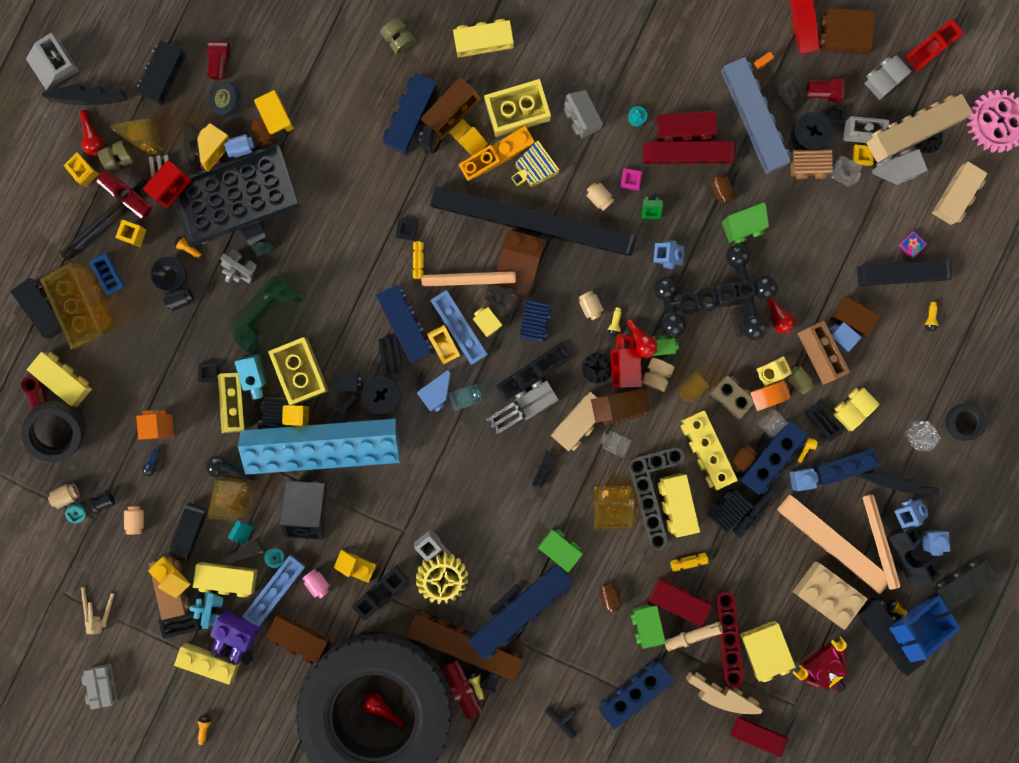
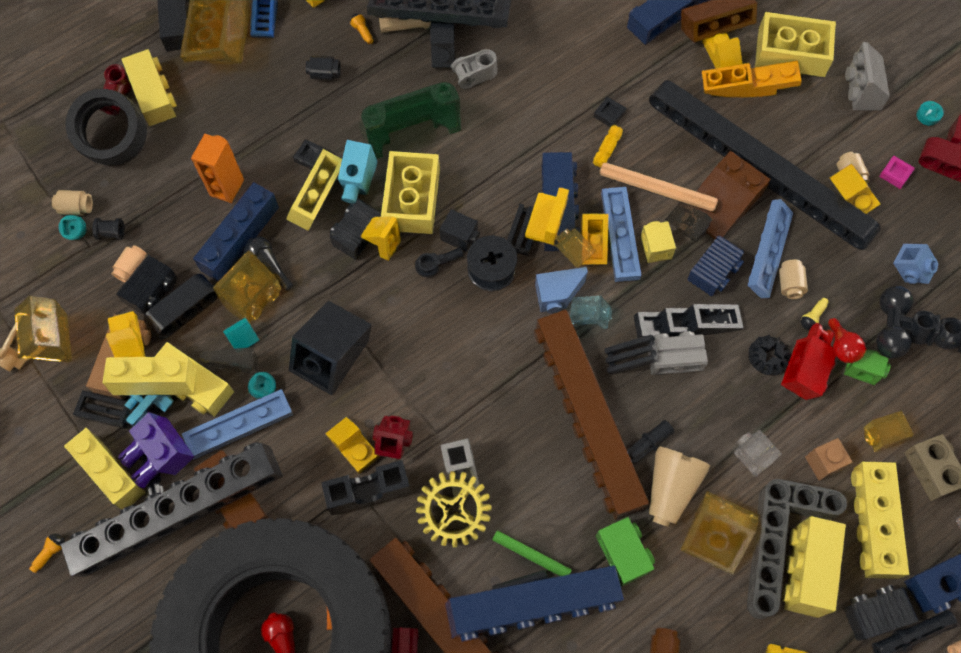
camera: 30 degrees right, 20 degrees down
(108, 599) = (42, 330): none -> clear yellow slope
(149, 468) = (182, 220): dark blue piece -> none
(156, 529) = (147, 285): none -> black brick
(160, 269) = (324, 33): black piece -> none
(193, 461) = (241, 224): none -> dark blue brick
(201, 596) = (149, 375): none -> light yellow brick
(229, 722) = (80, 550): none -> black brick
(235, 270) = (401, 67): light grey hips -> none
(289, 244) = (476, 68): none -> light grey piece
(316, 584) = (293, 440): bright pink brick -> none
(319, 446) = (390, 280): dark azure brick -> none
(379, 551) = (392, 437): none -> dark red brick
(403, 347) = (547, 216): none -> yellow panel
(426, 139) = (679, 31): black plate -> none
(433, 362) = (574, 247): none -> clear yellow brick
(497, 470) = (591, 416): none -> reddish brown brick
(504, 578) = (531, 554): none -> bright green bar
(535, 166) = (789, 110): torso -> none
(566, 288) = (770, 249): none -> medium blue plate
(572, 492) = (674, 484): none -> tan cone
(576, 424) = (723, 399): tan brick -> none
(606, 216) = (854, 189): none -> yellow slope
(620, 406) = (789, 395): reddish brown brick -> none
(651, 208) = (912, 209): green tile -> none
(658, 374) = (848, 395): tan wheel -> none
(662, 426) = (828, 459): none -> medium nougat brick
(743, 459) = (926, 554): reddish brown brick -> none

